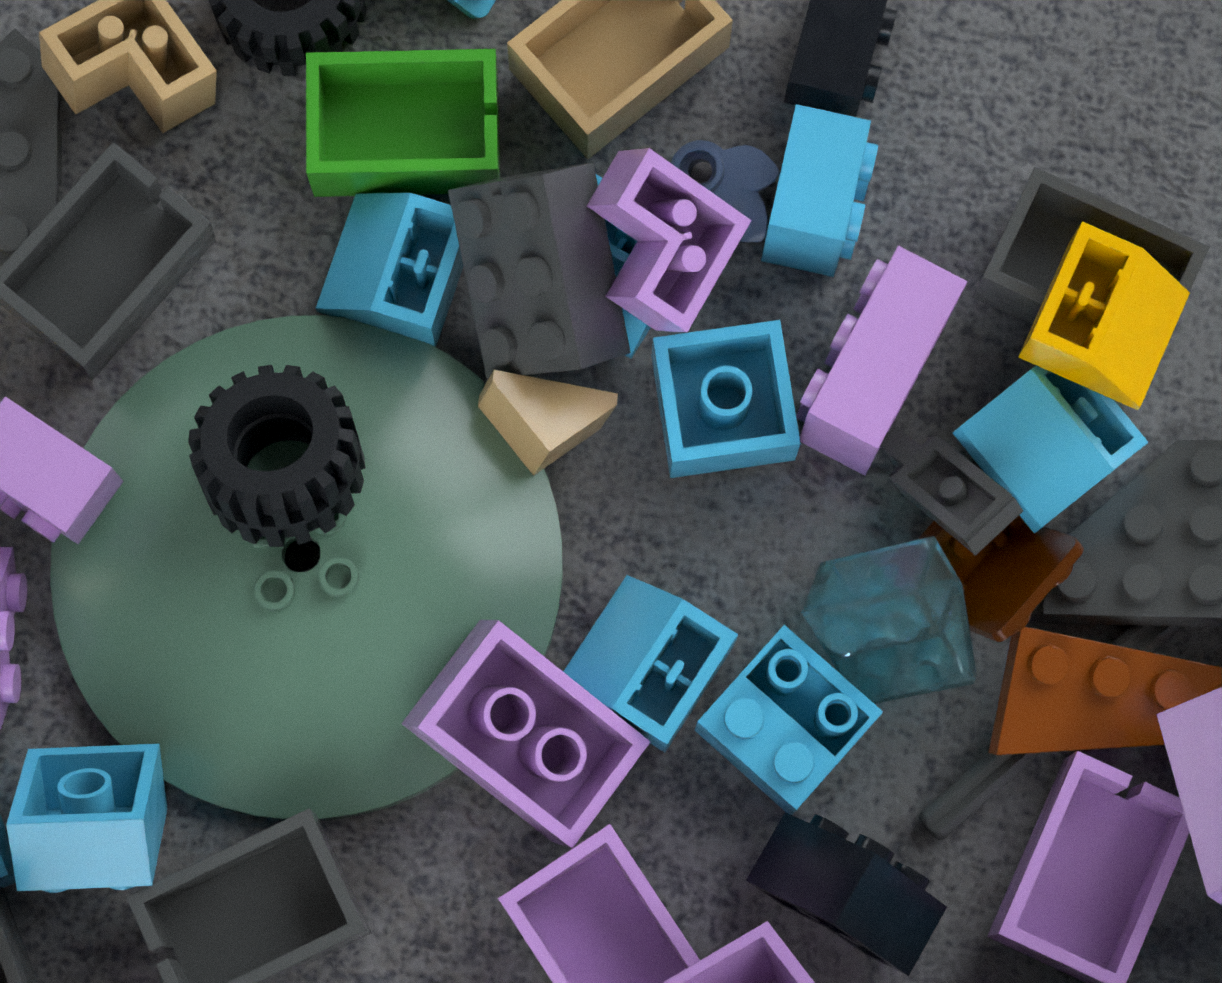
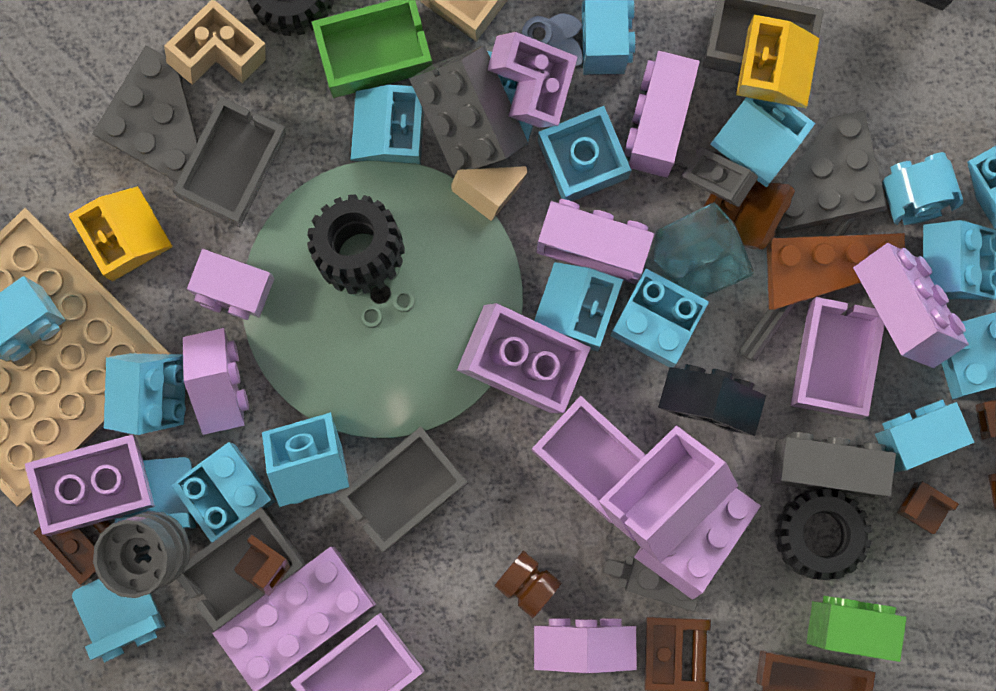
camera: 10 degrees left, 5 degrees up
(705, 553) = (595, 241): none -> lavender piece

